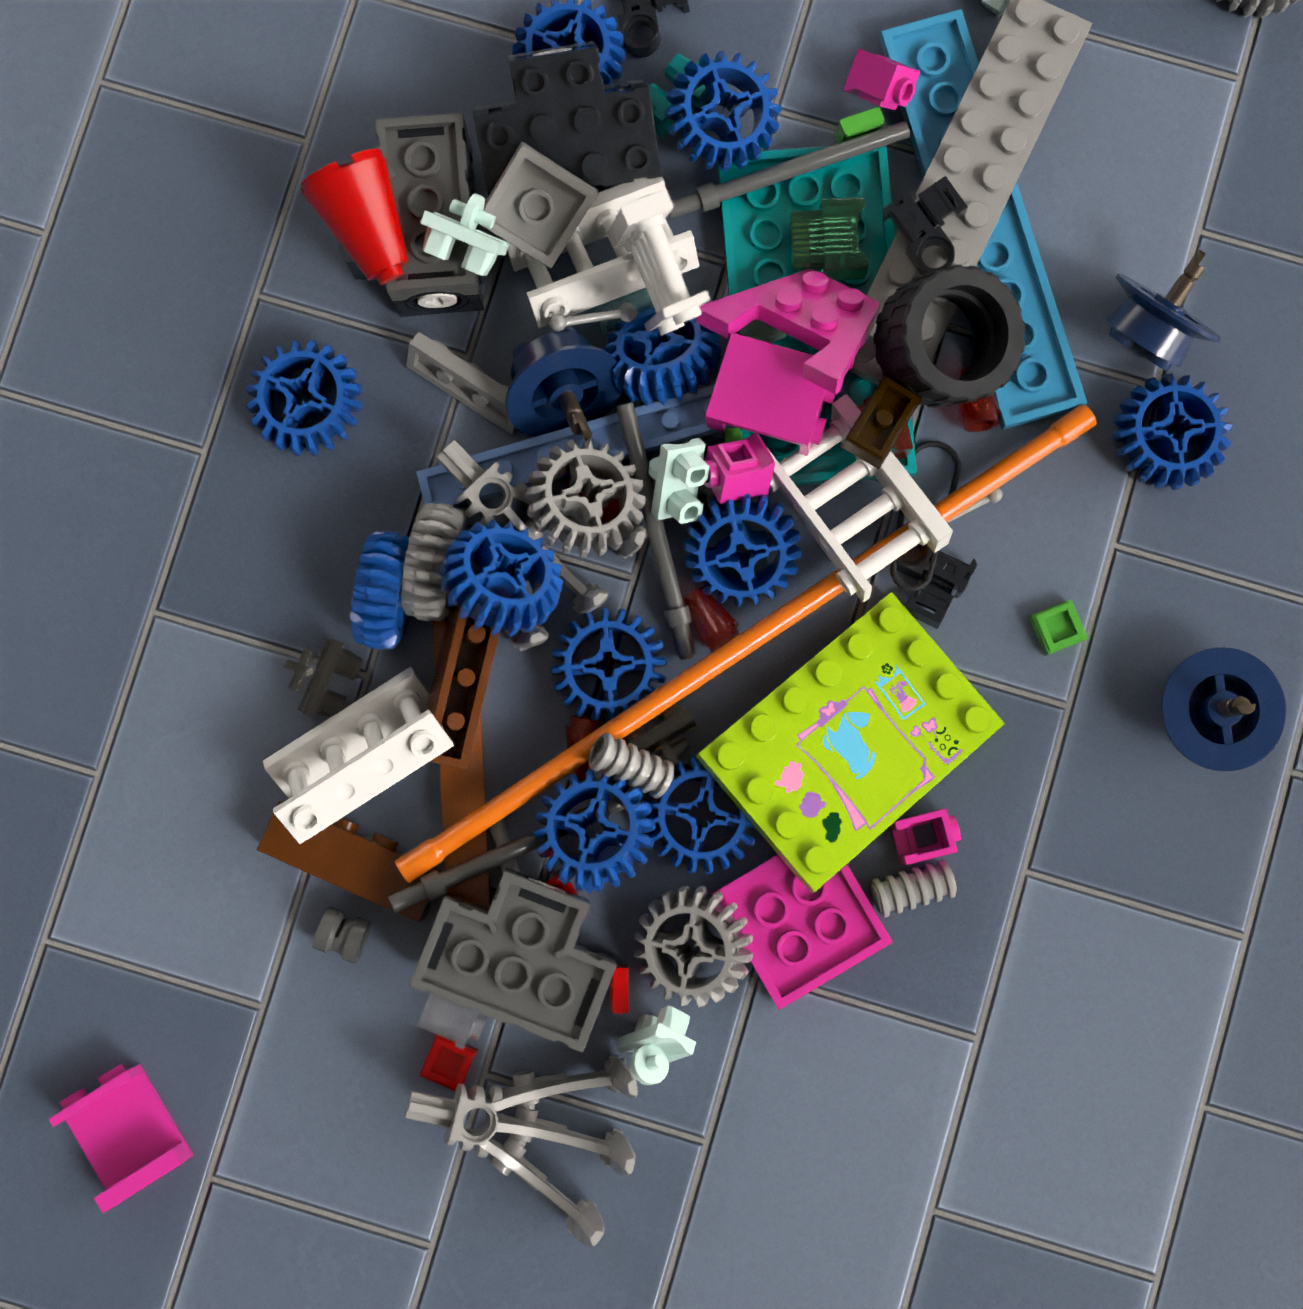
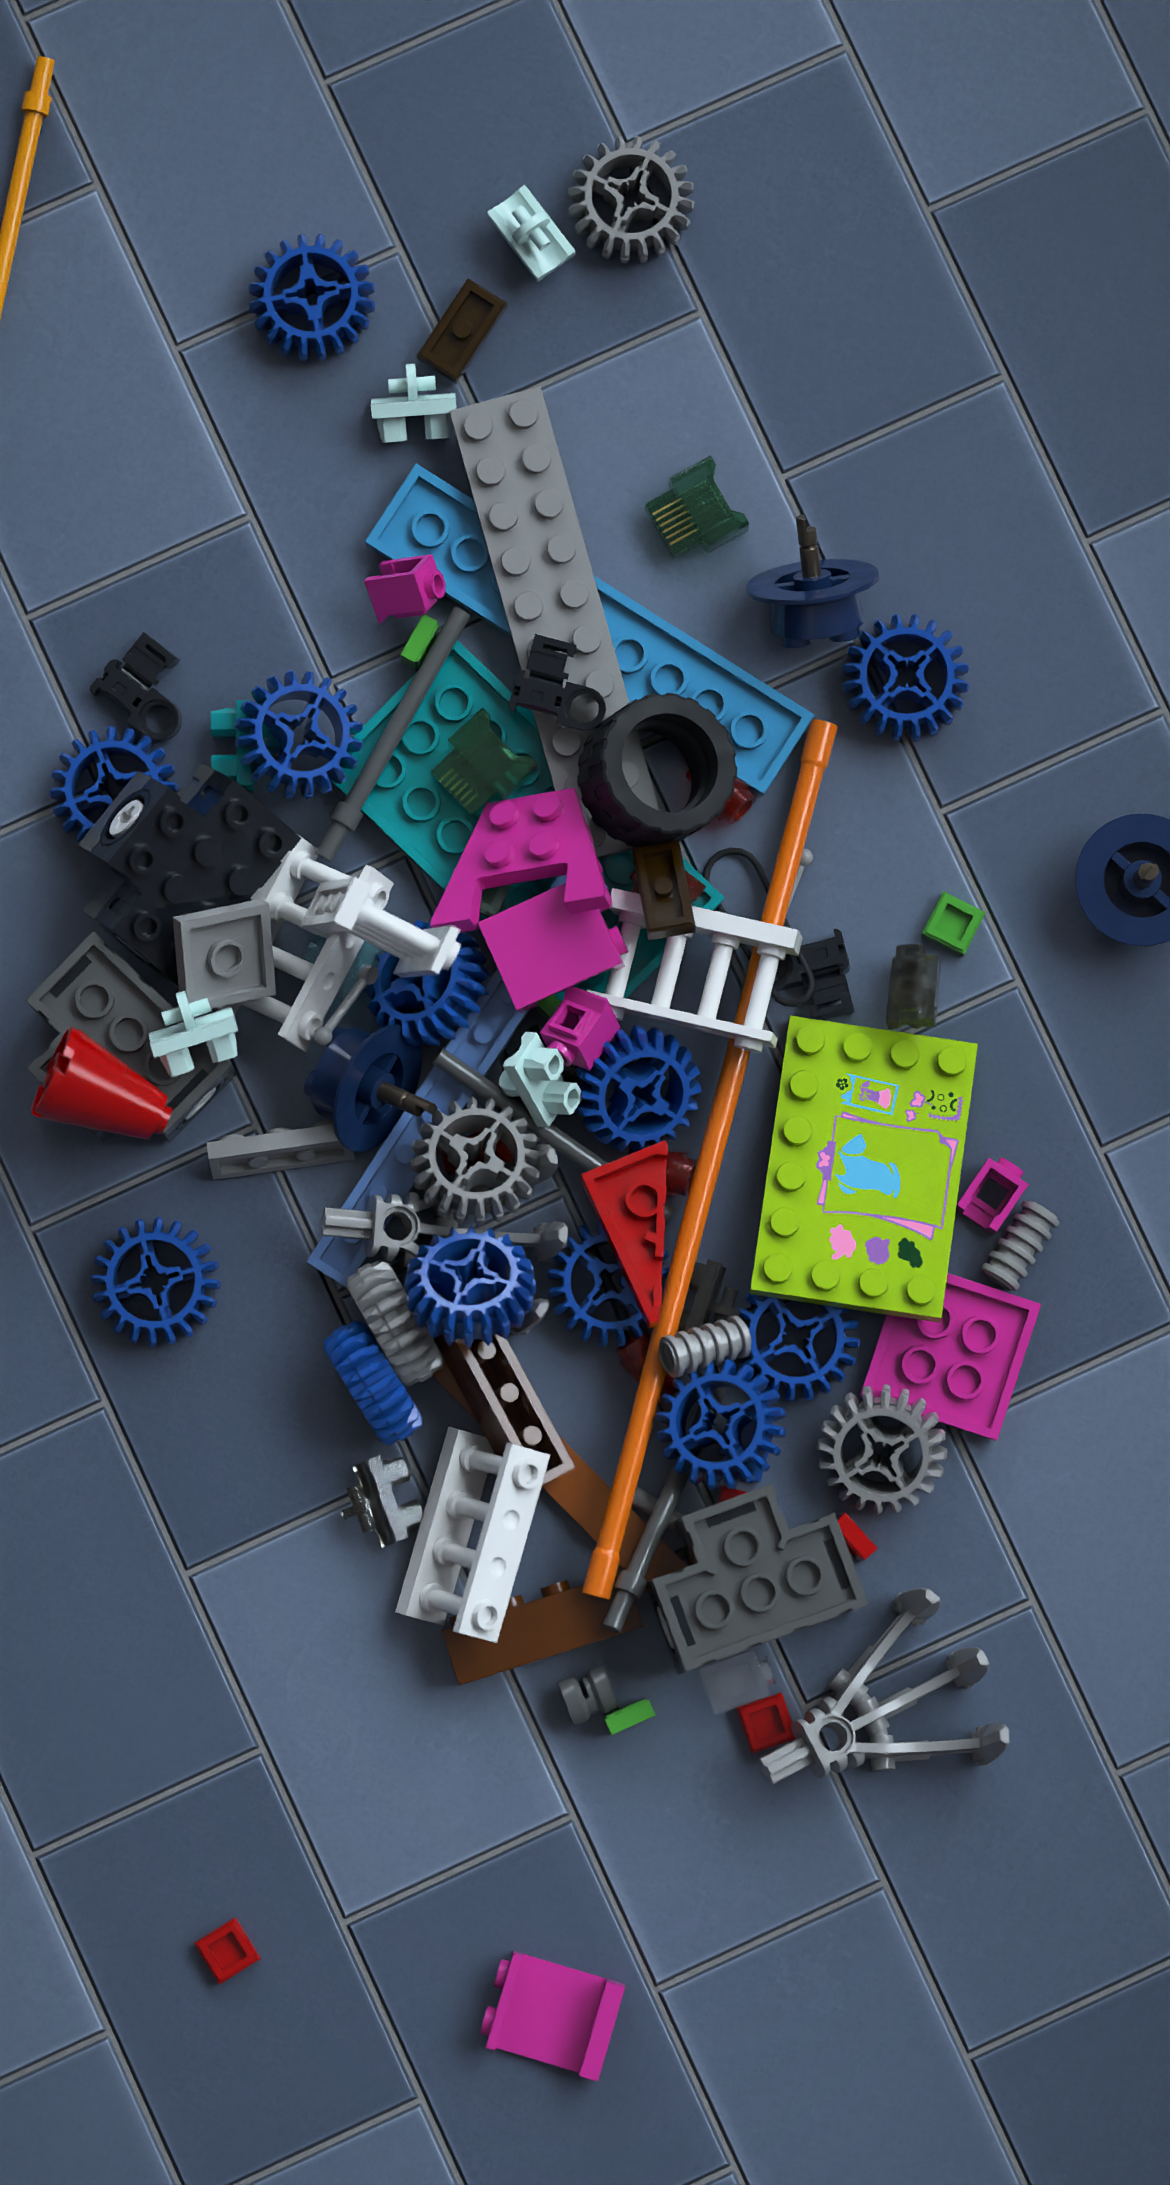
camera: 45 degrees left, 0 degrees up
(357, 975) = (629, 1716): none -> bright green tile
(656, 1044) = (922, 1551): light aqua hips -> none
(663, 627) = (631, 1208): none -> red wing
(994, 645) = (913, 988): none -> clear smoke hips
(1123, 200) = (695, 512): none -> clear green piece

